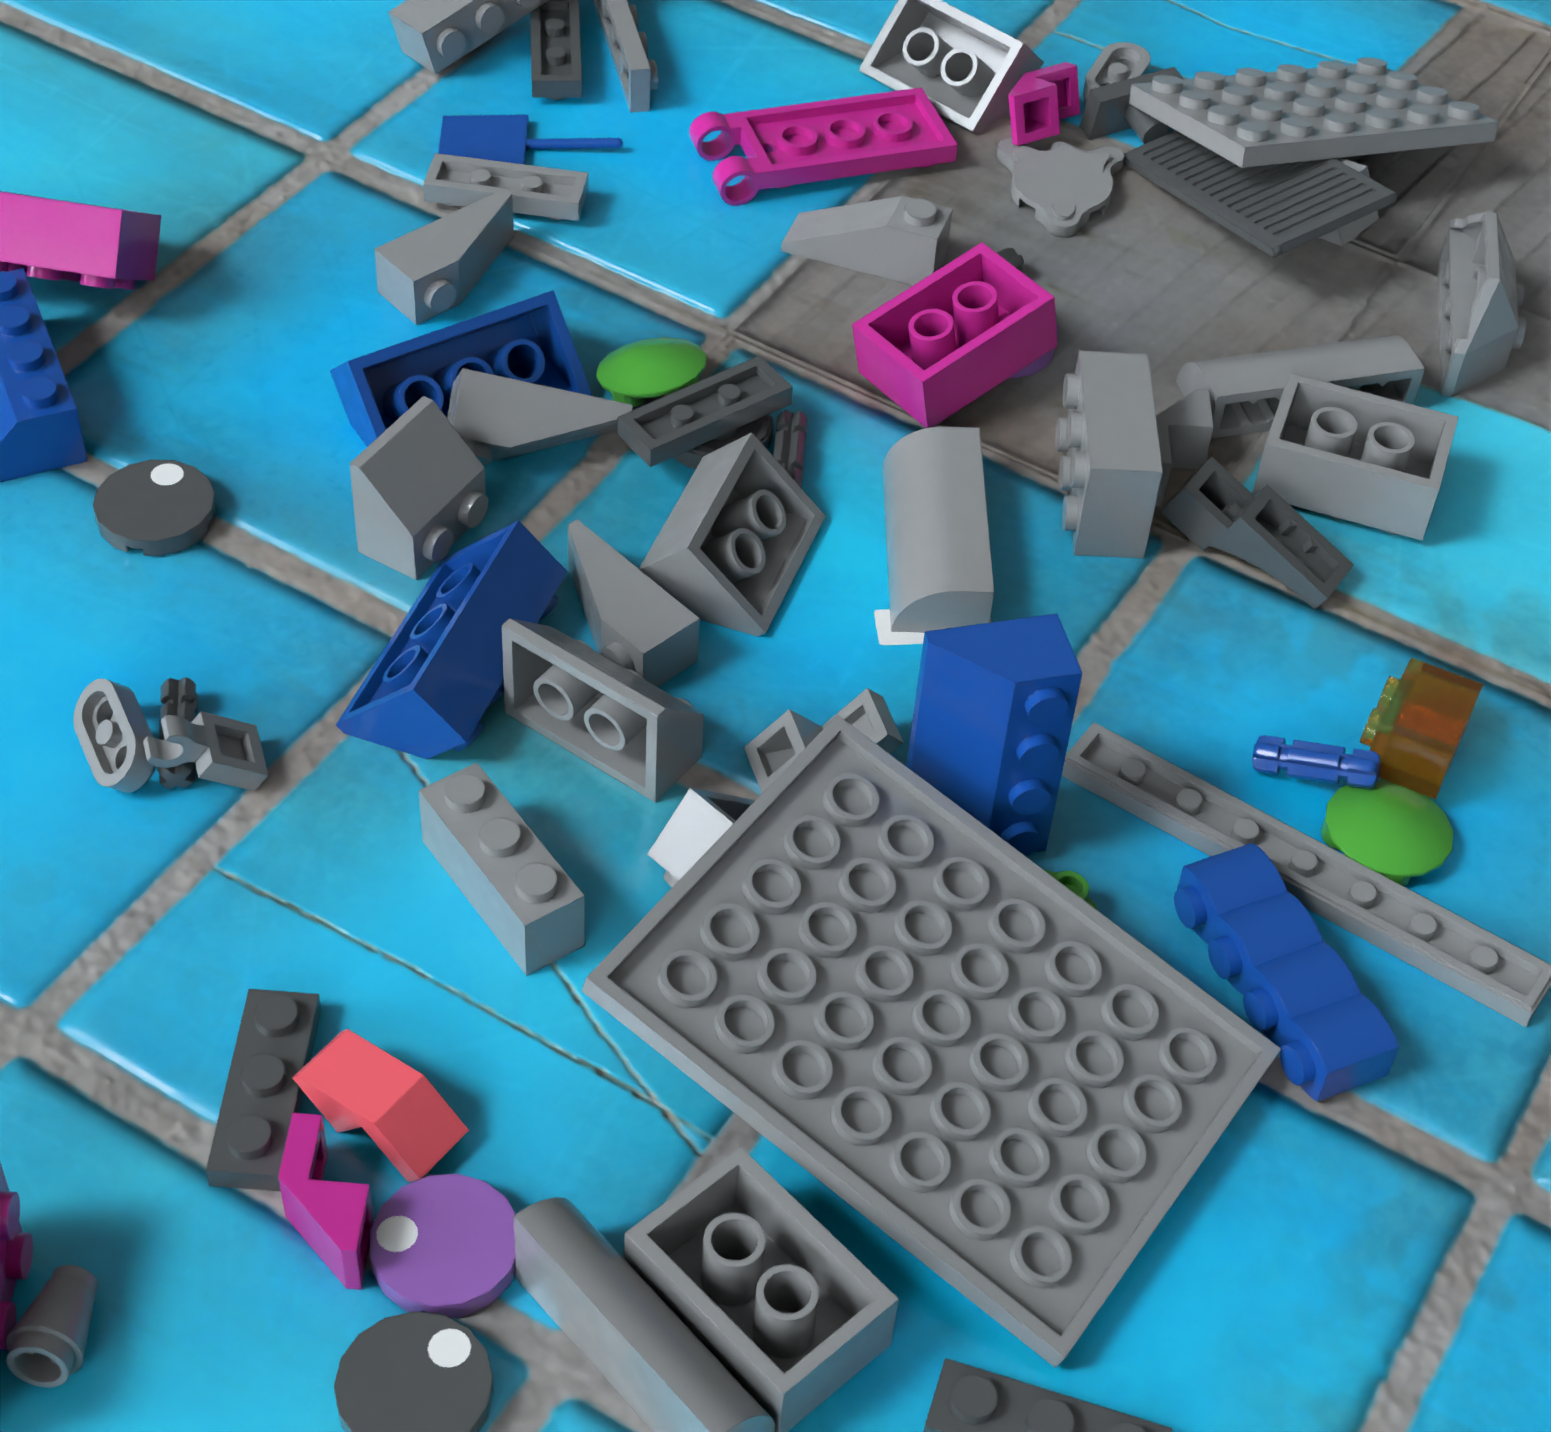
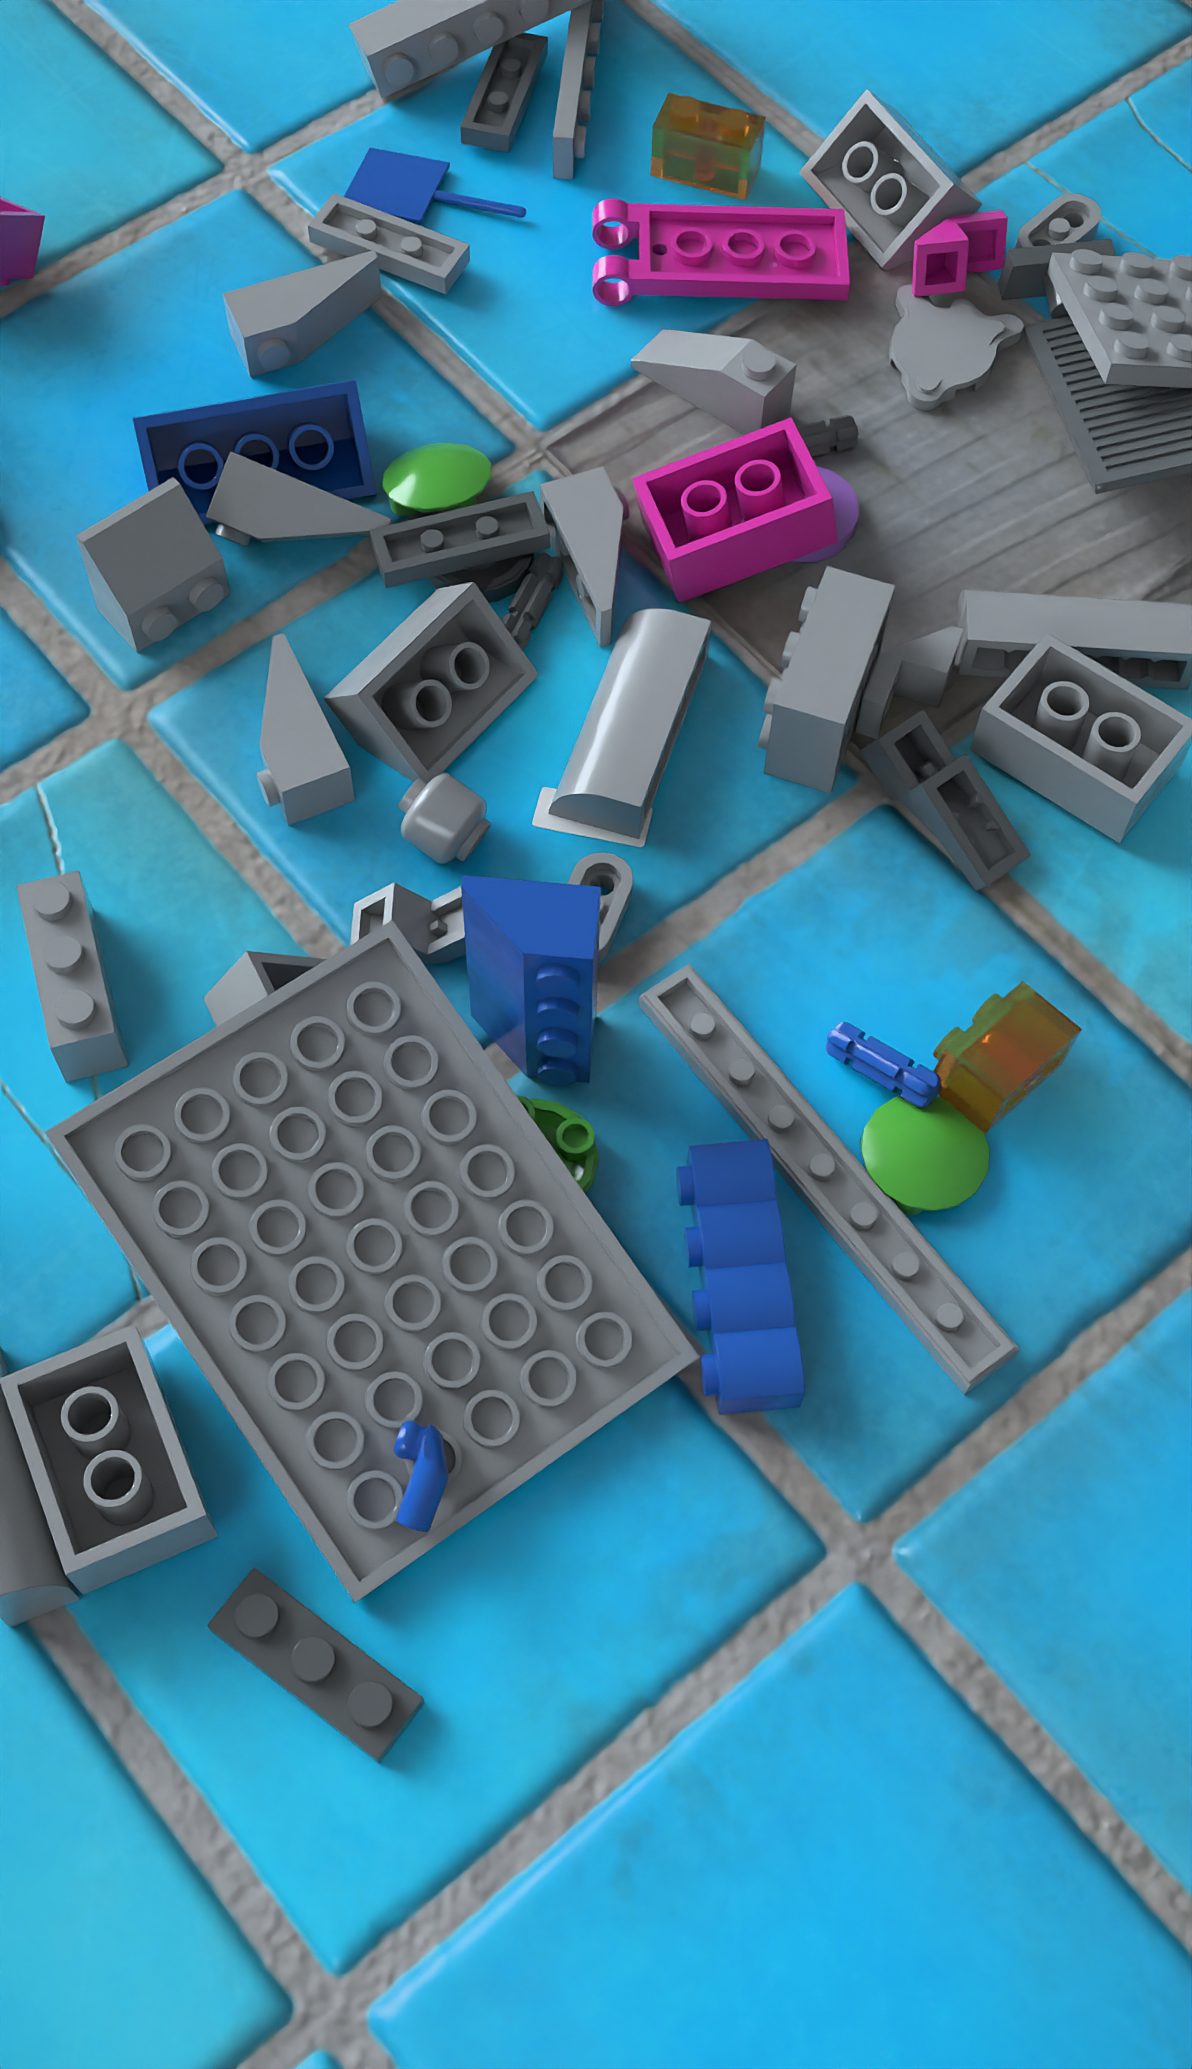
camera: 20 degrees right, 15 degrees up
(448, 648) = (134, 736): blue slope -> none
(598, 709) = (228, 831): light grey slope -> none
(772, 58) = (707, 146): none -> clear orange brick
(804, 649) = (443, 818): none -> light grey head
(829, 396) = (587, 534): none -> light grey slope
(1090, 1205) = (428, 1475): none -> blue arm

